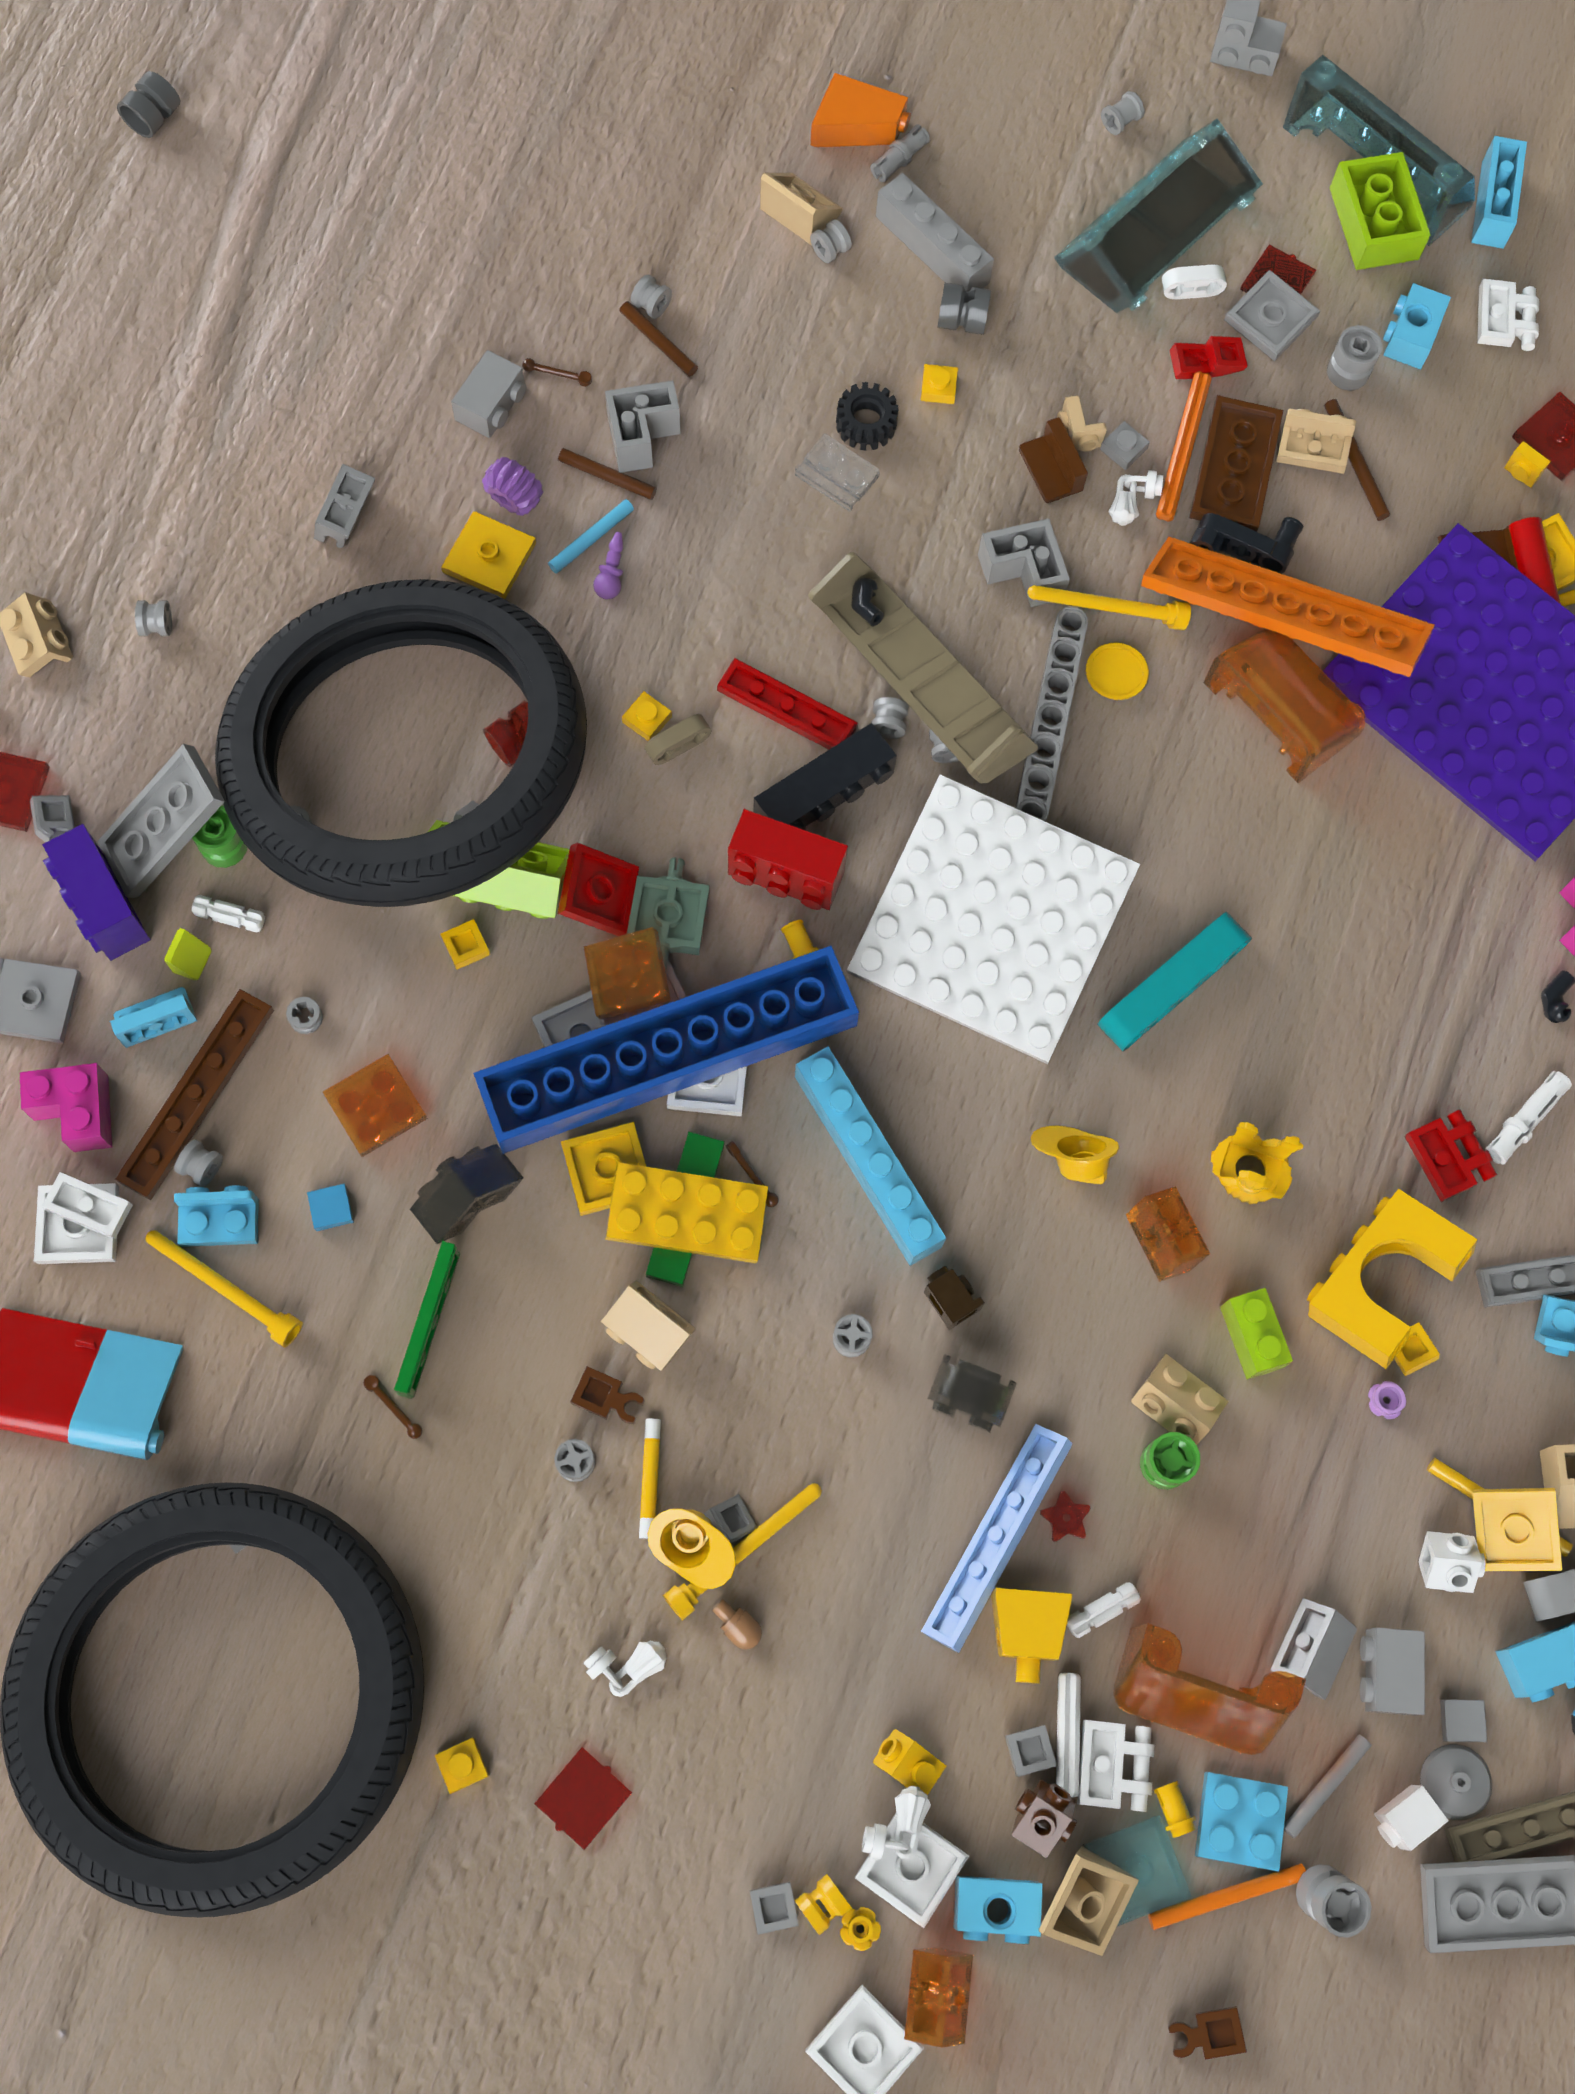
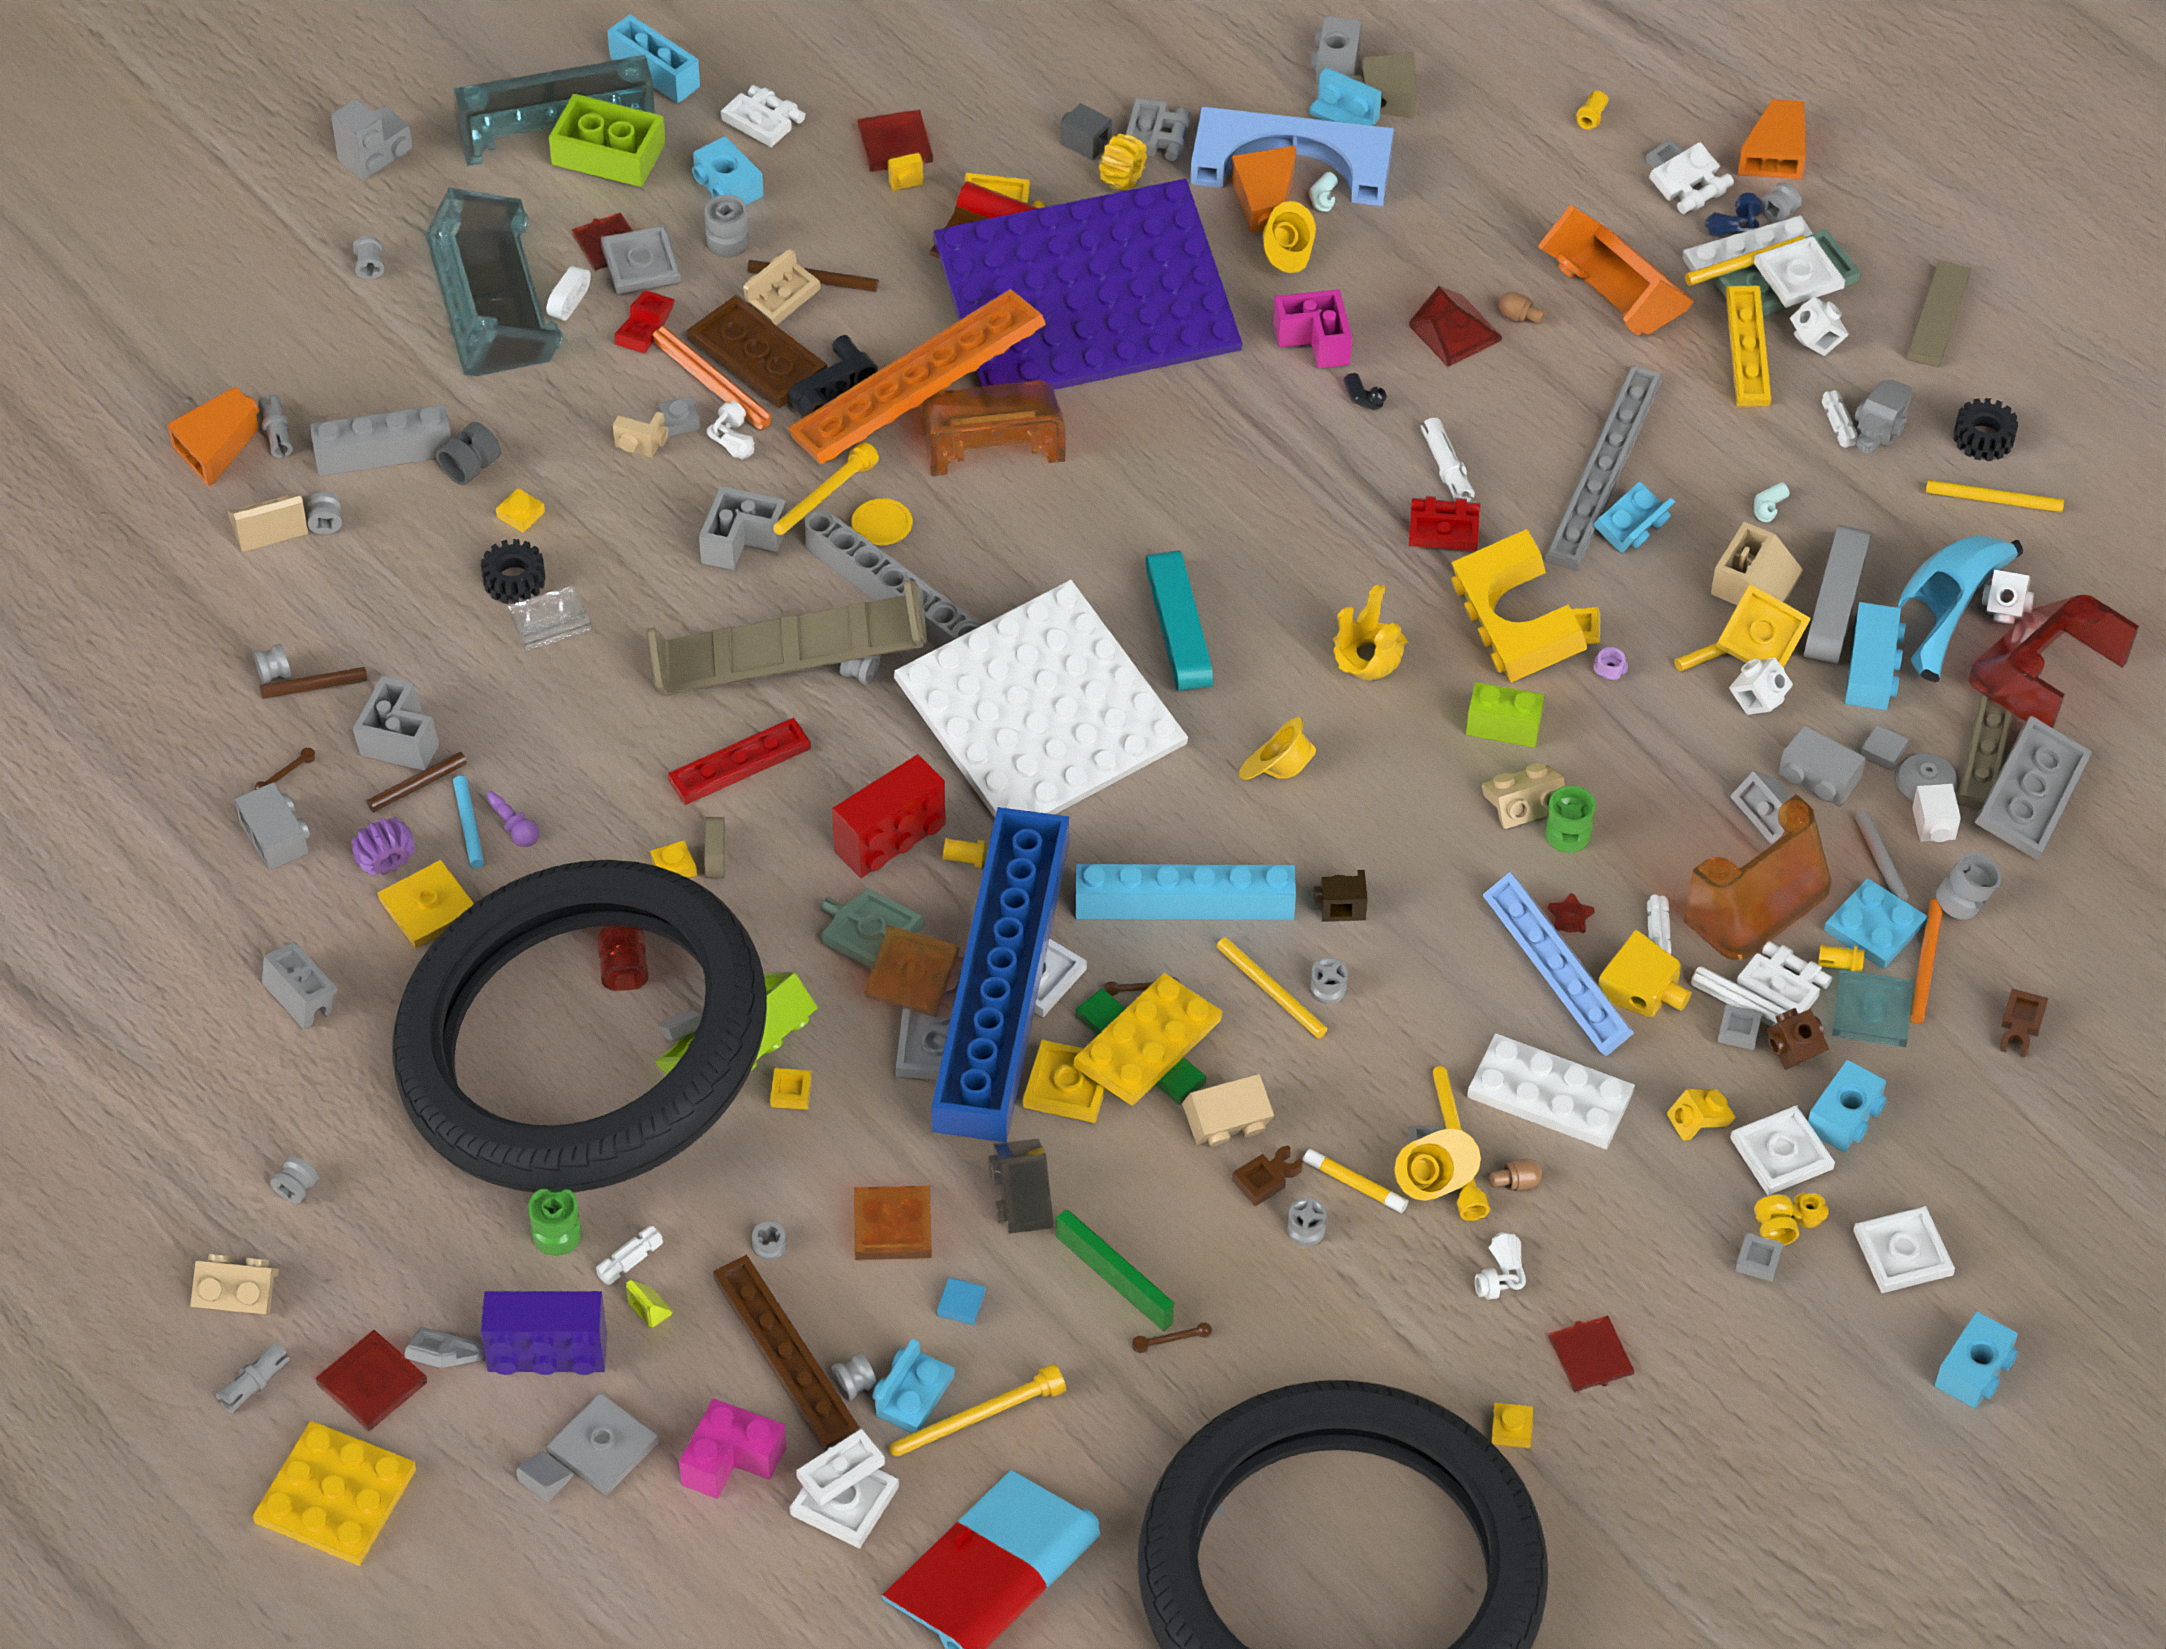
camera: 55 degrees left, 20 degrees down
(153, 1017) = (690, 1349): medium azure bracket -> none
(160, 821) = (517, 1229): light grey plate -> none
(598, 889) = (816, 963): red plate -> none
(818, 1288) = (1271, 987): none -> yellow bar
(829, 780) = (834, 756): black brick -> none
(853, 1606) = (1550, 1091): none -> white plate
(861, 601) = (688, 657): black arm -> none
(890, 717) = (807, 692): light grey wheel -> none
(911, 1811) = (1749, 1149): white piece -> none
(938, 1997) = (1892, 1172): clear orange brick -> none
(971, 1392) = (1432, 916): clear smoke brick -> none
(1054, 463) = (659, 467): reddish brown panel -> none
(1089, 1903) = (1876, 1040): tan slope -> none
(1167, 1234) = (1387, 727): clear orange brick -> none

